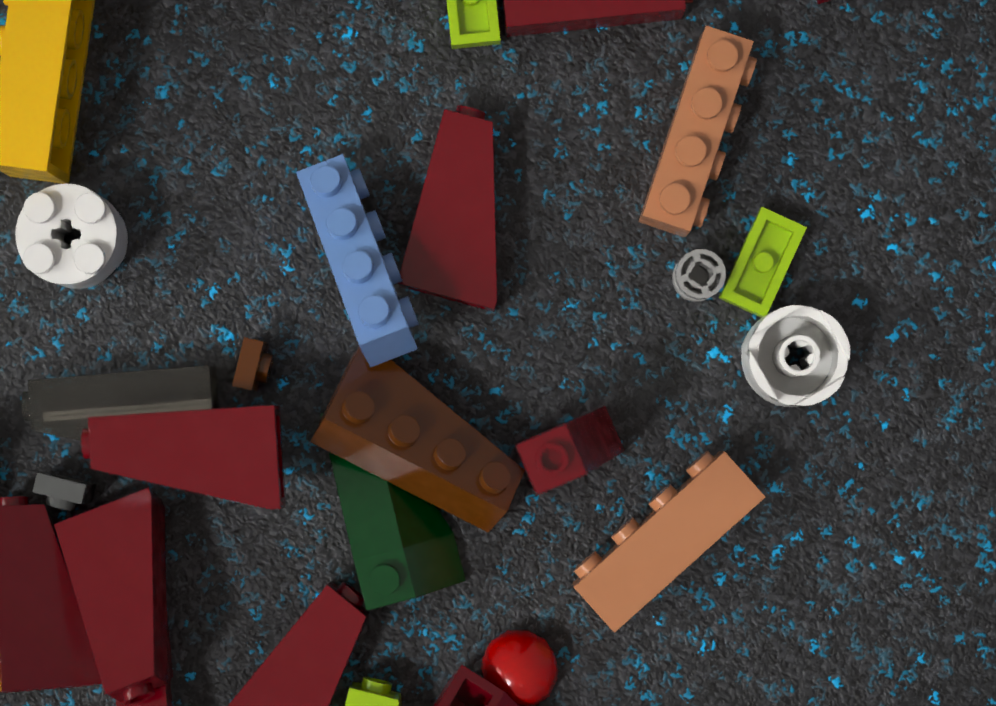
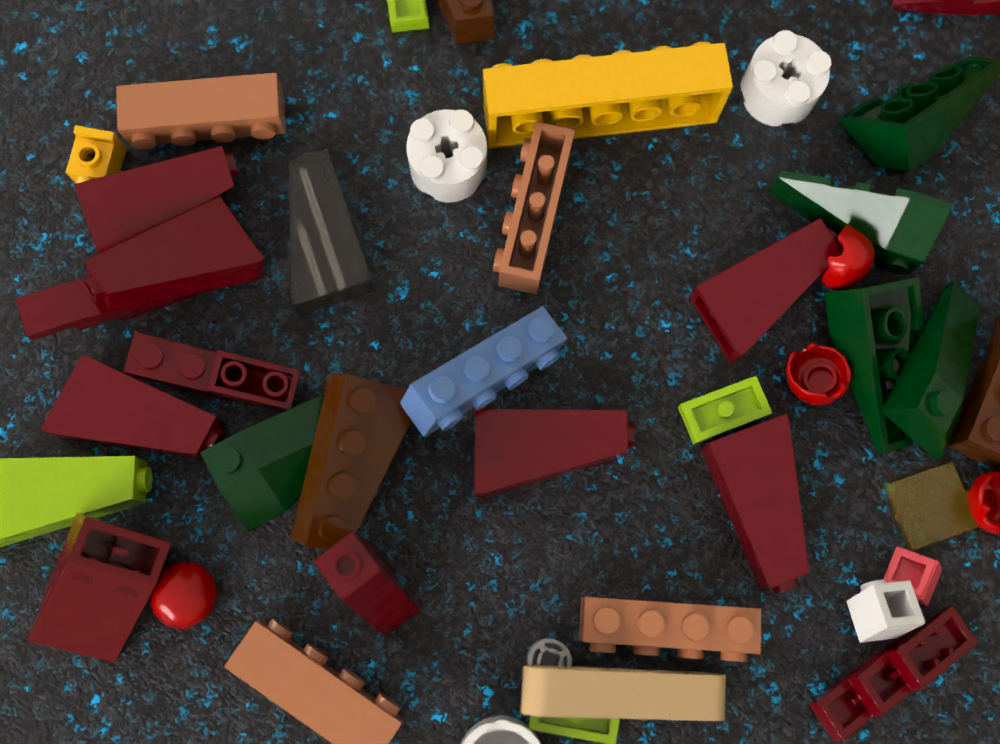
camera: 75 degrees right, 10 degrees down
(63, 491) = (250, 199): dark grey plate -> none
(173, 148) = (535, 209): none -> nougat brick
(206, 451) = (298, 290): dark red slope -> none
(253, 365) = (382, 315): reddish brown plate -> none
(270, 580) = (211, 372): none -> dark red slope
(755, 202) = (622, 693): none -> tan beam

